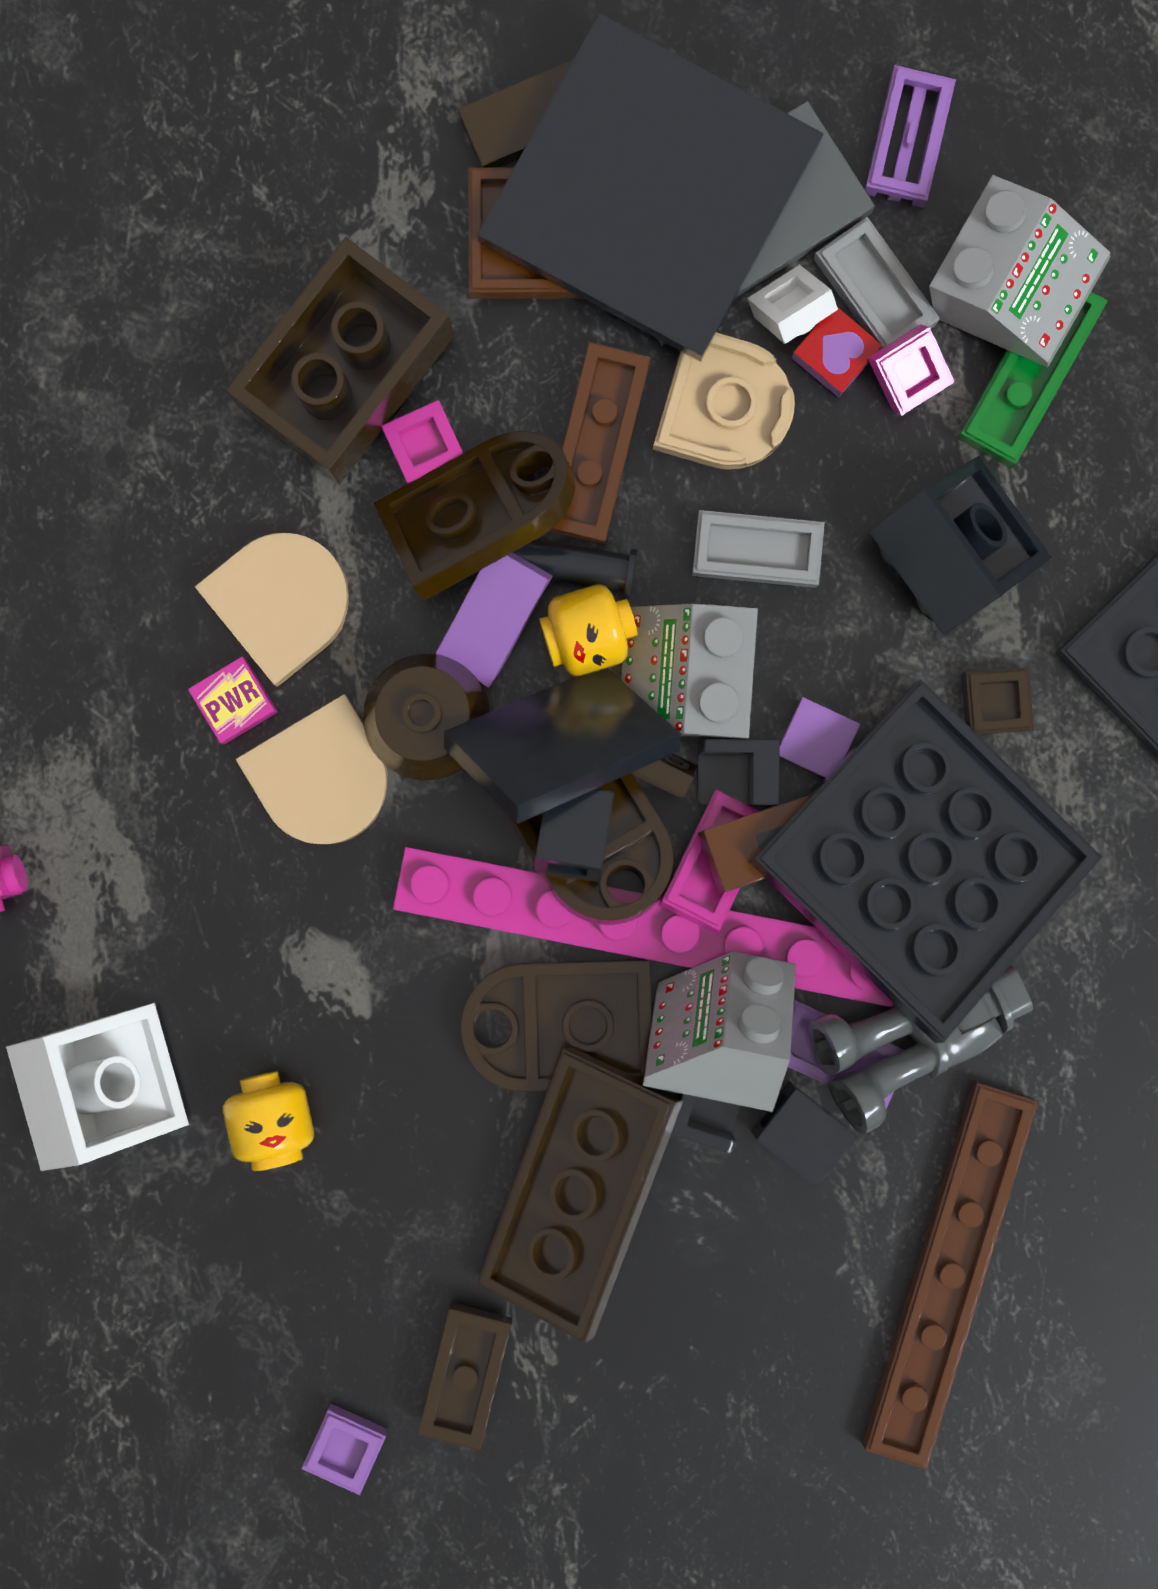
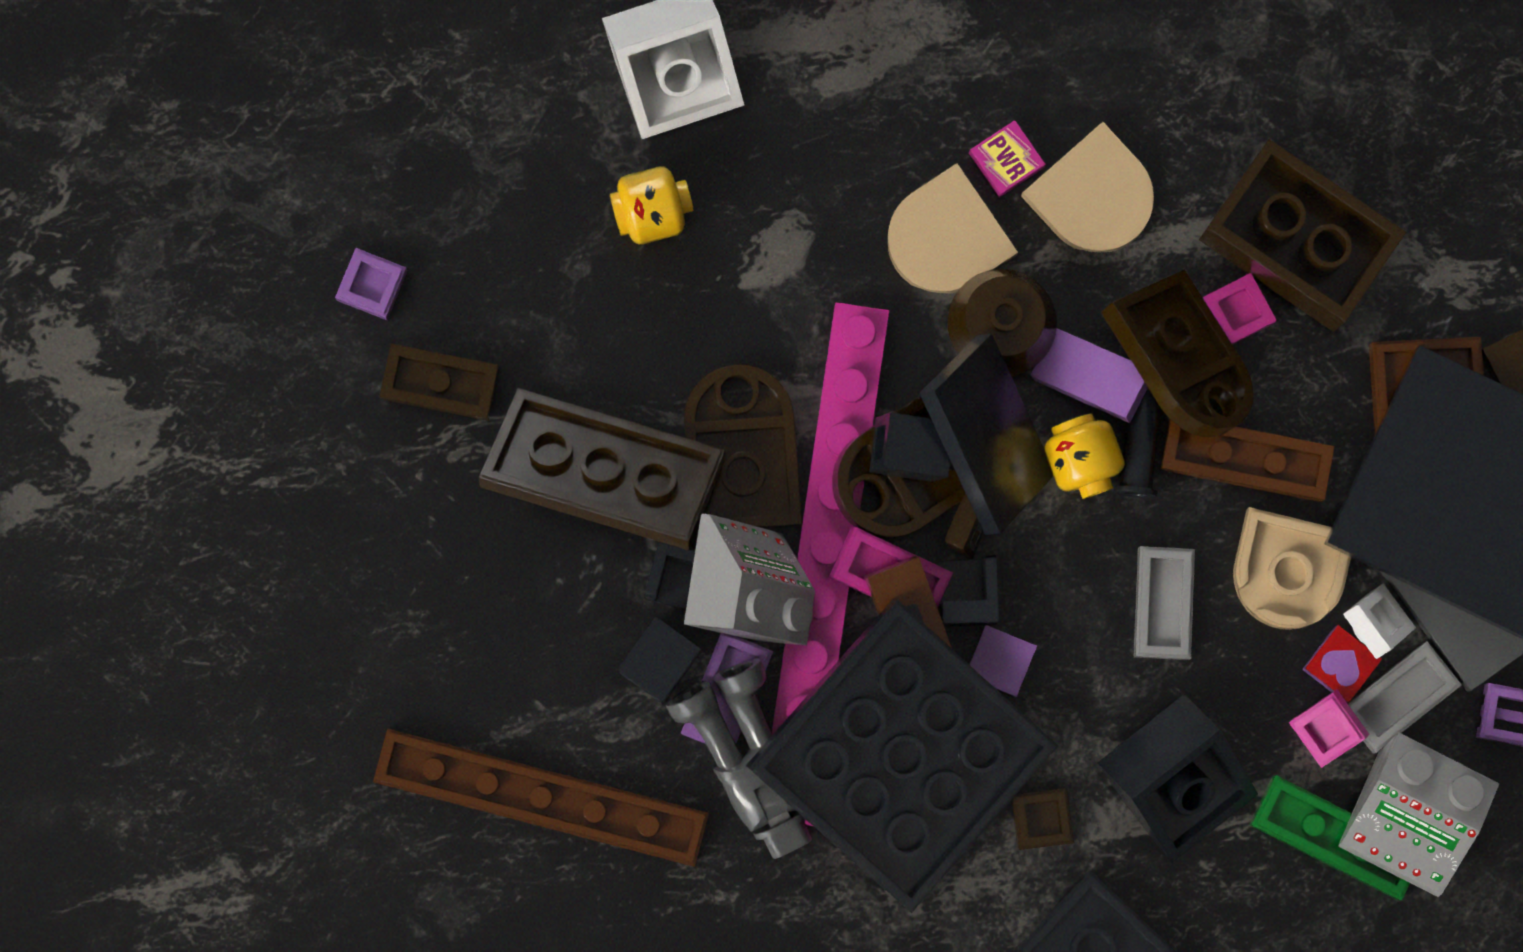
camera: 85 degrees right, 5 degrees down
(695, 666) = (1057, 549): light grey slope -> none

